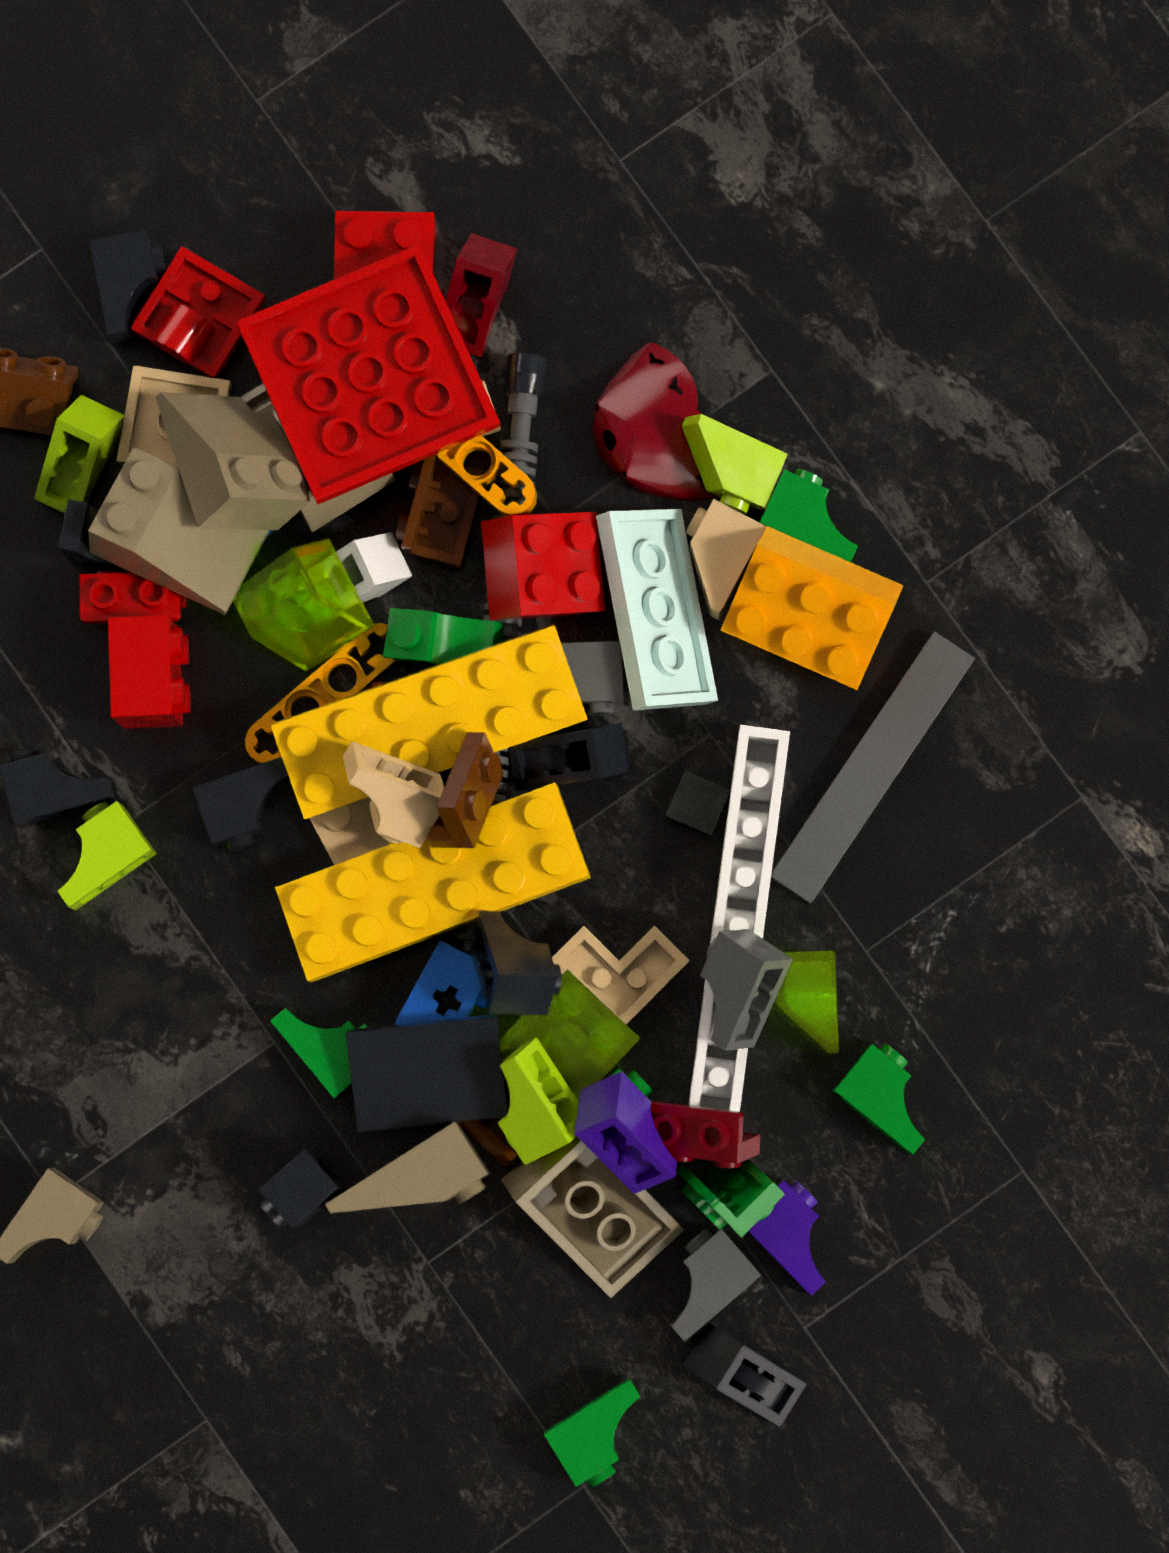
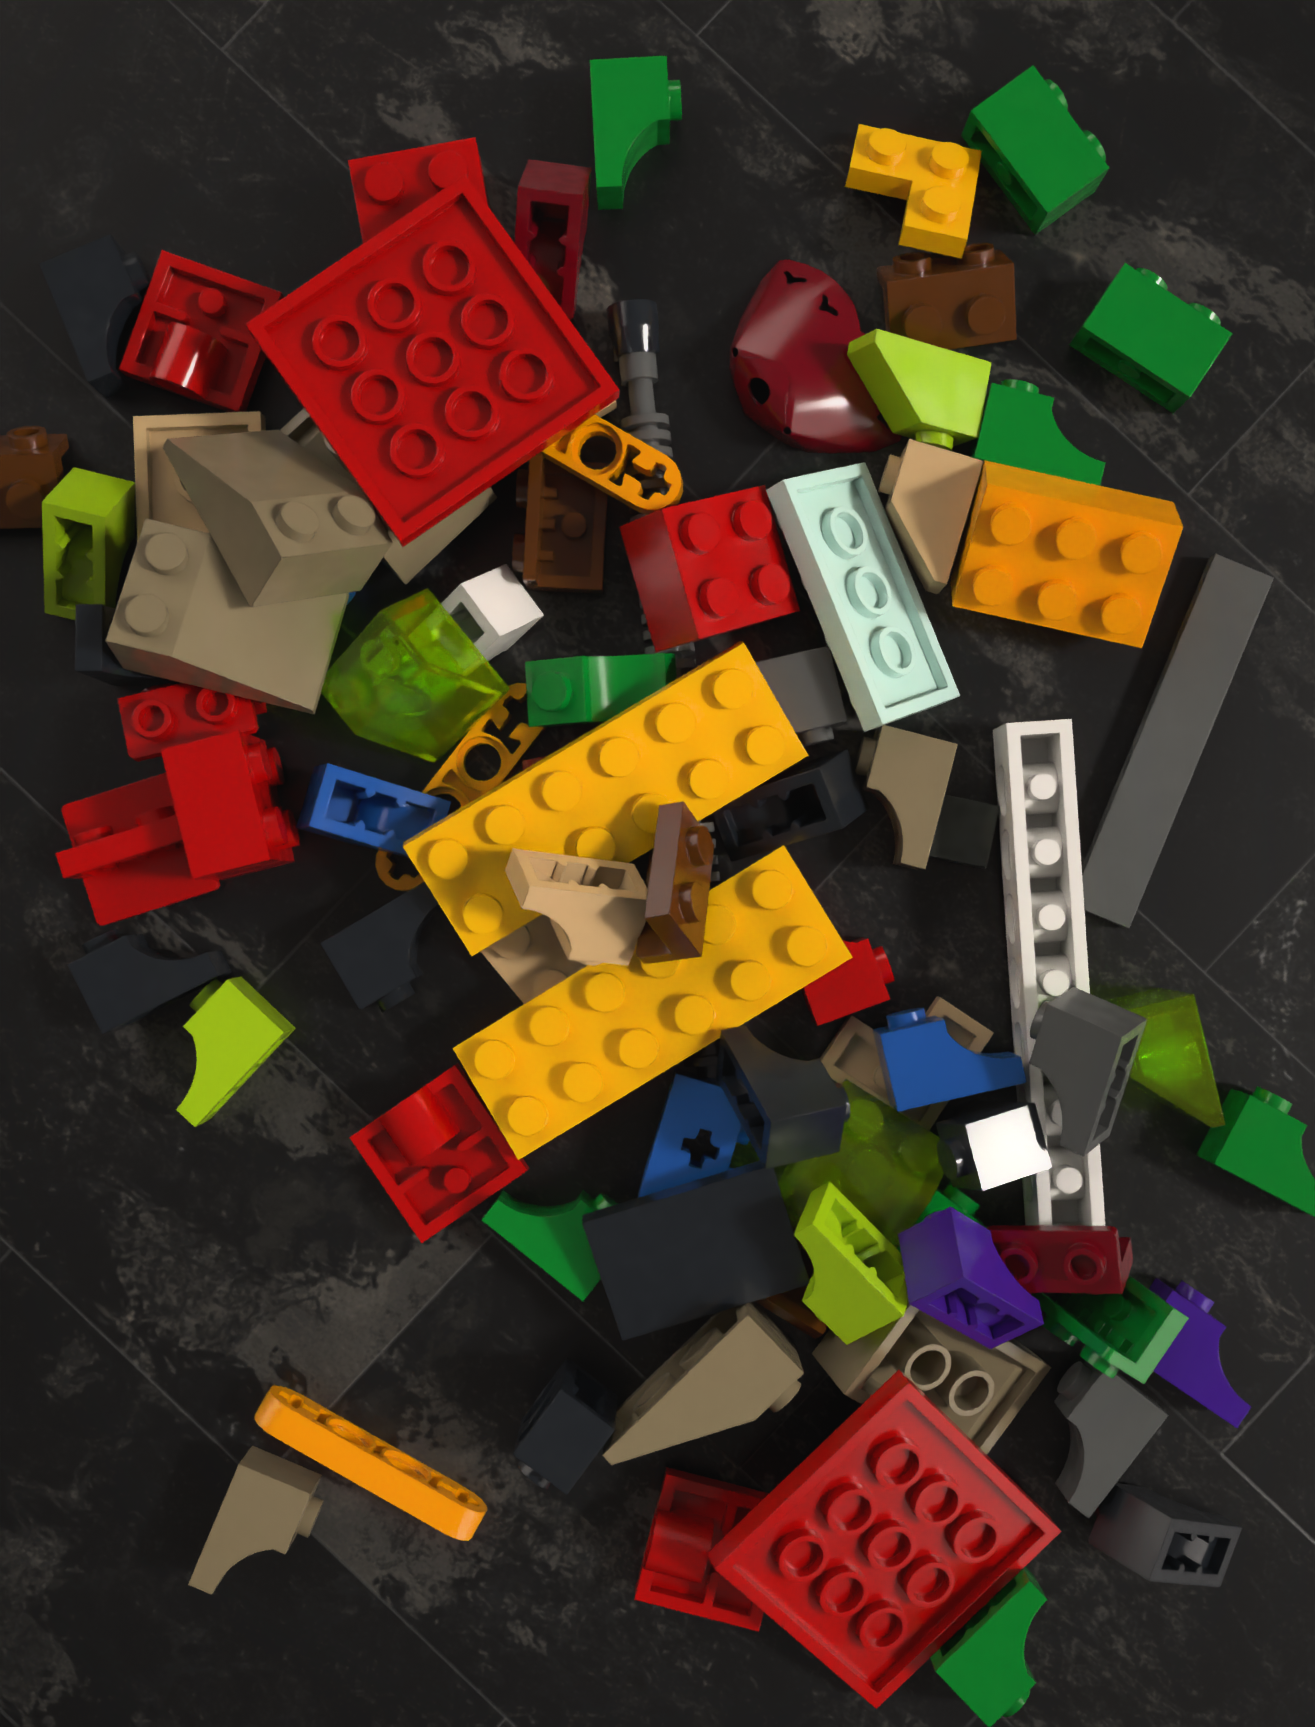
camera: 15 degrees left, 5 degrees up
(64, 691) = (129, 851): none -> red bracket
(146, 1194) = (370, 1462): none -> light orange beam
(247, 695) = (366, 809): none -> blue arch
(247, 967) = (438, 1153): none -> red plate
(393, 1315) = (686, 1525): none -> red plate
(526, 1327) = (884, 1540): none -> red plate
(554, 212) = (630, 117): none -> green arch
(587, 900) = (851, 985): none -> red arch
(633, 972) = (929, 1067): none -> blue arch
(663, 1036) = (991, 1144): none -> arch
(664, 754) = (910, 781): none -> dark tan arch
(769, 398) = (951, 298): none -> reddish brown bracket
(770, 301) = (929, 174): none -> yellow plate
(857, 299) = (1035, 149): none -> green brick
(916, 457) = (1151, 337): none -> green brick

